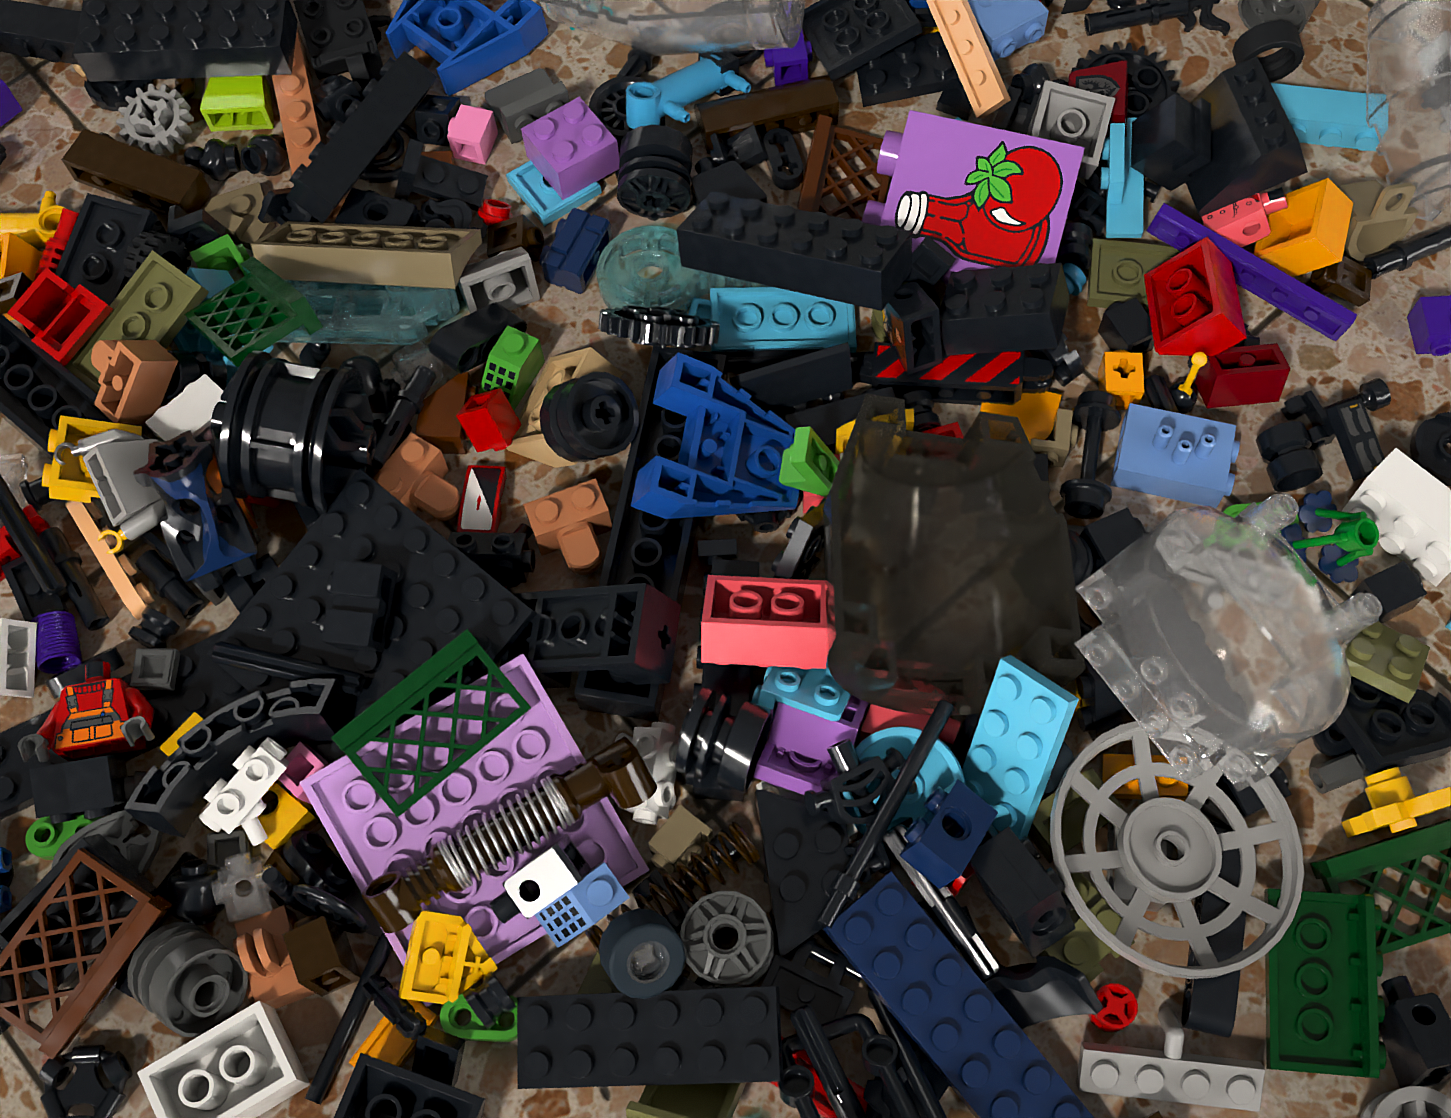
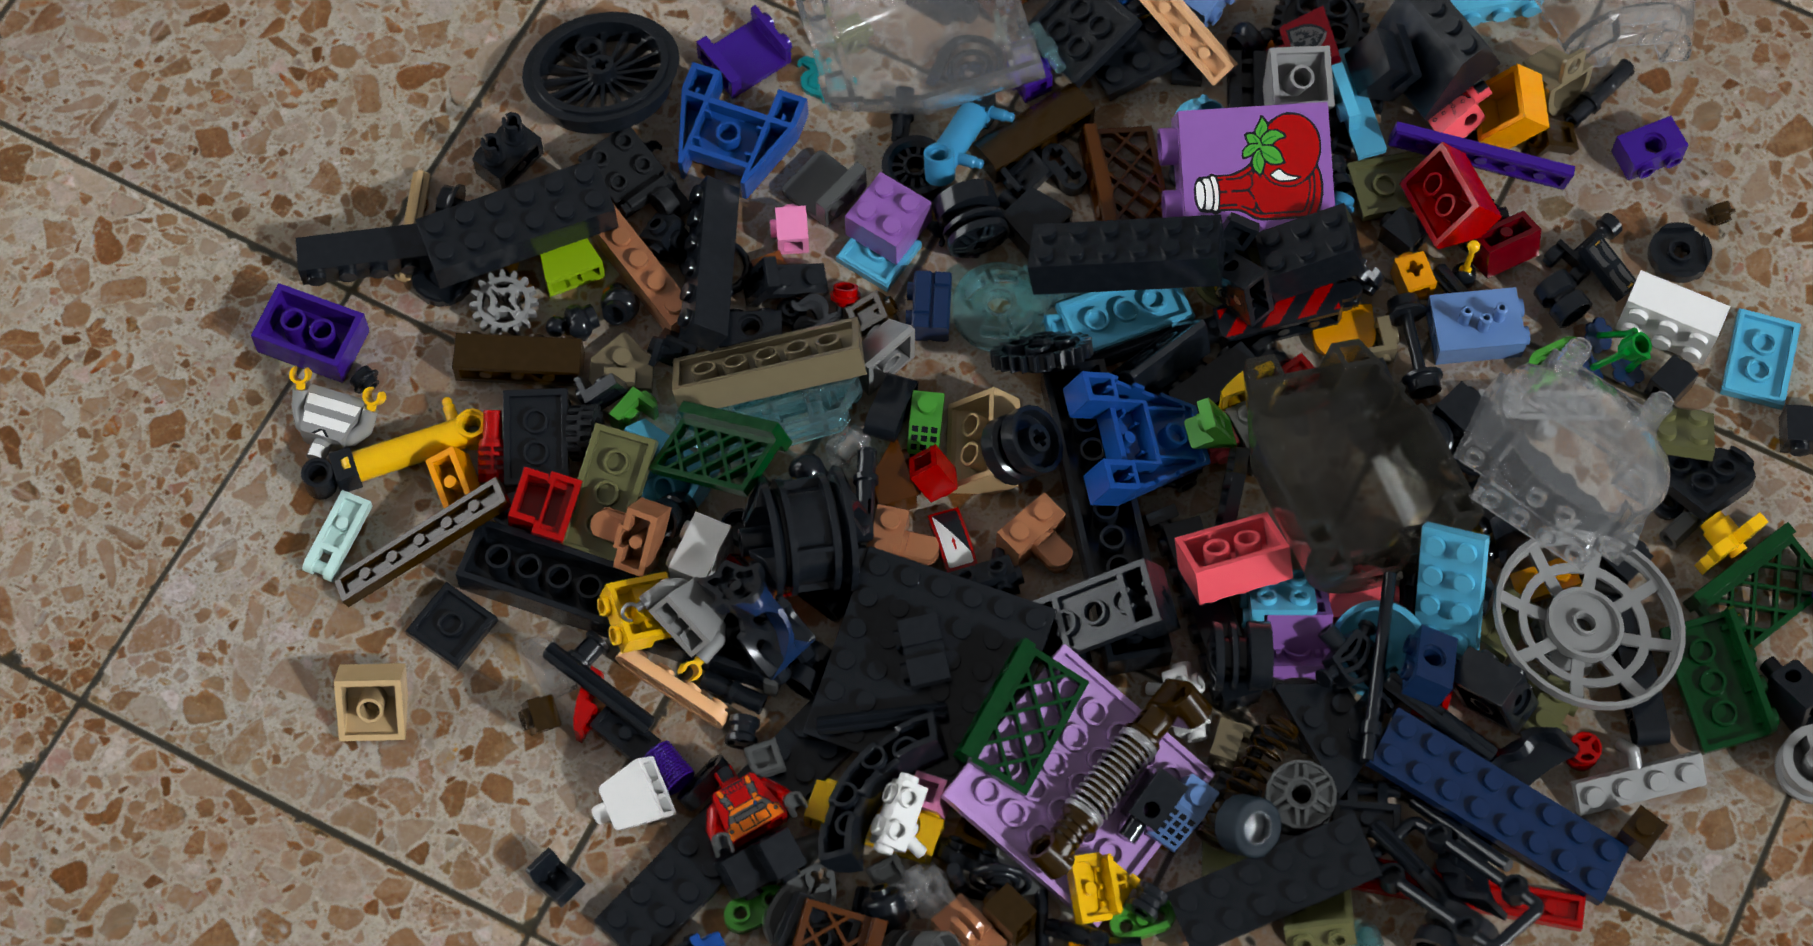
camera: 25 degrees left, 0 degrees up
(69, 566) = (663, 722): black pin -> none
(434, 117) = (753, 225): black bracket -> none
(814, 30) = (1047, 47): none -> clear light blue bar

